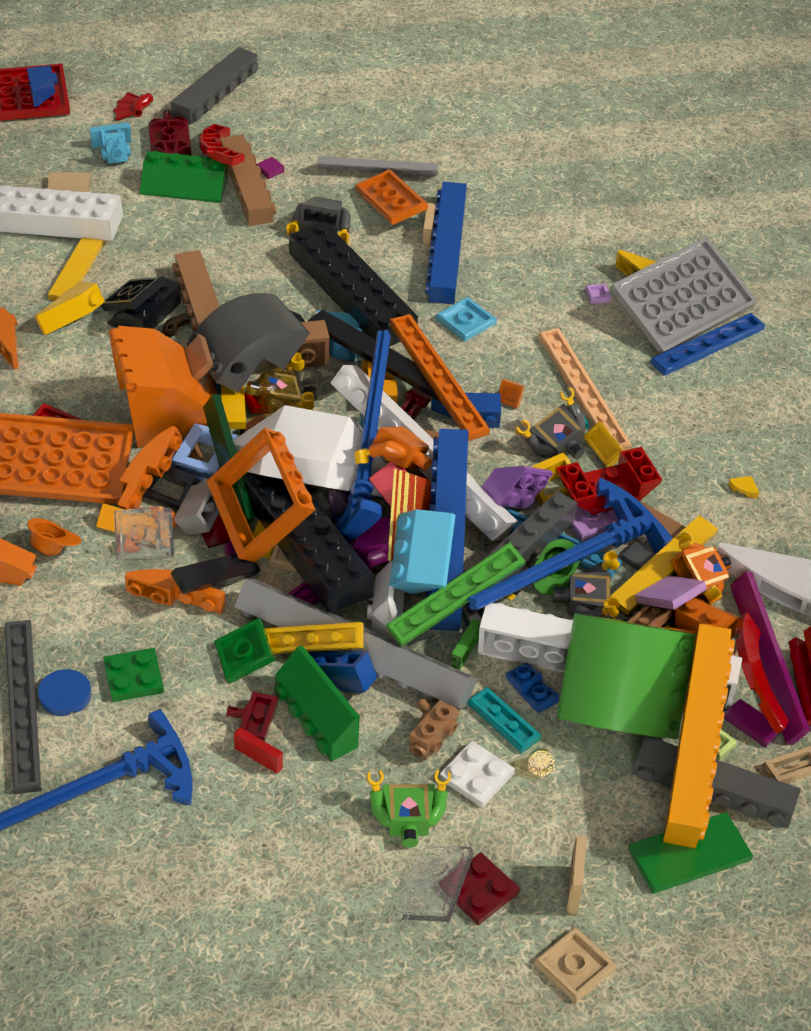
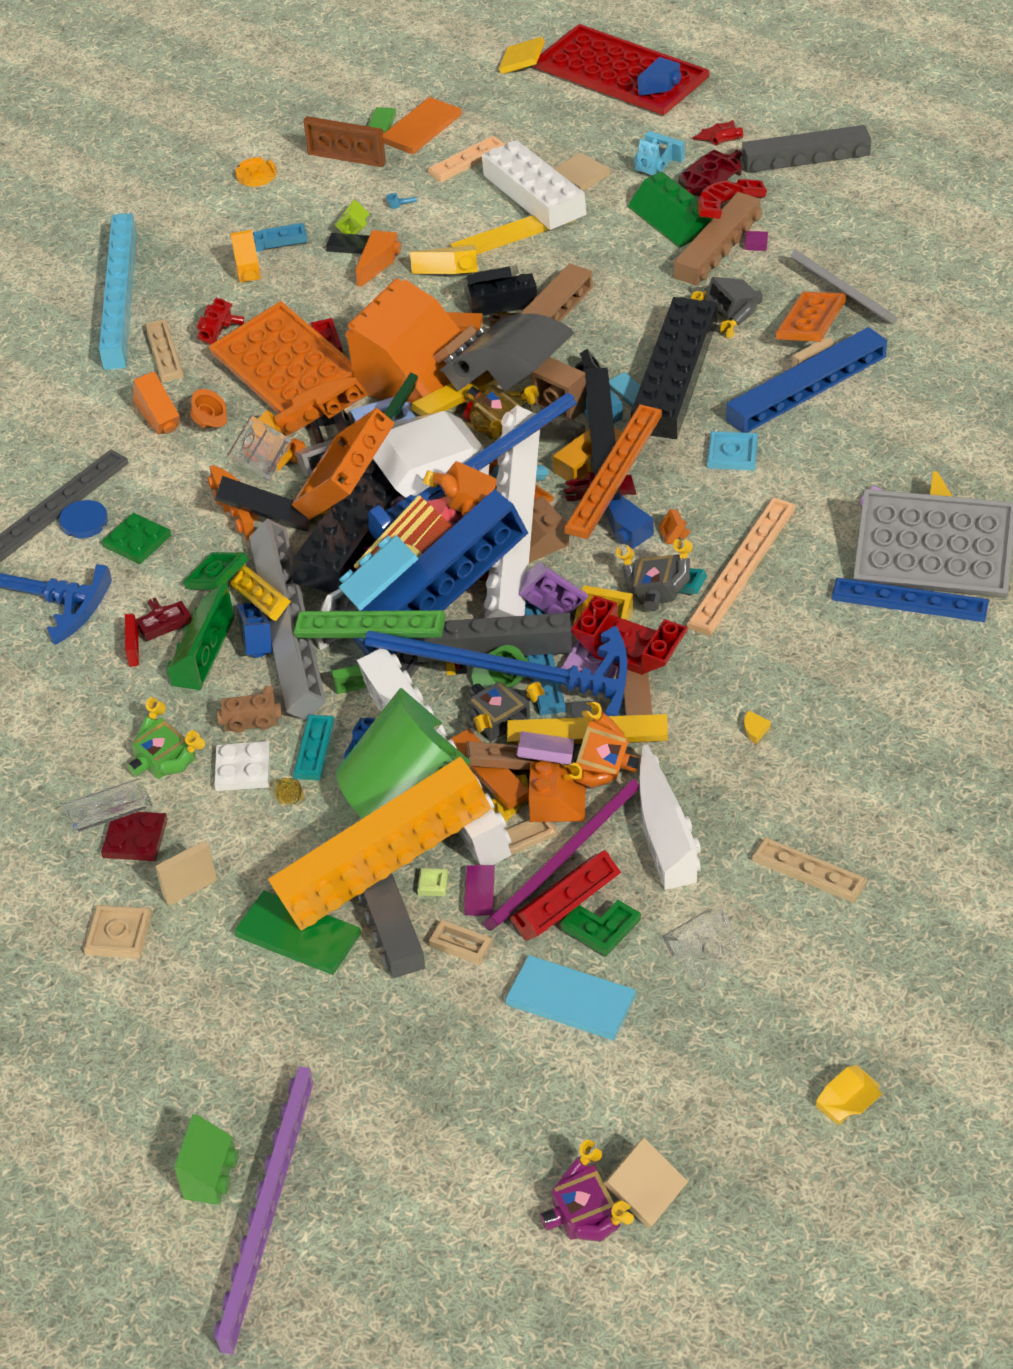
camera: 55 degrees right, 0 degrees up
(603, 444) = (689, 609): yellow tile -> none
(753, 670) = (513, 842): red tile -> none

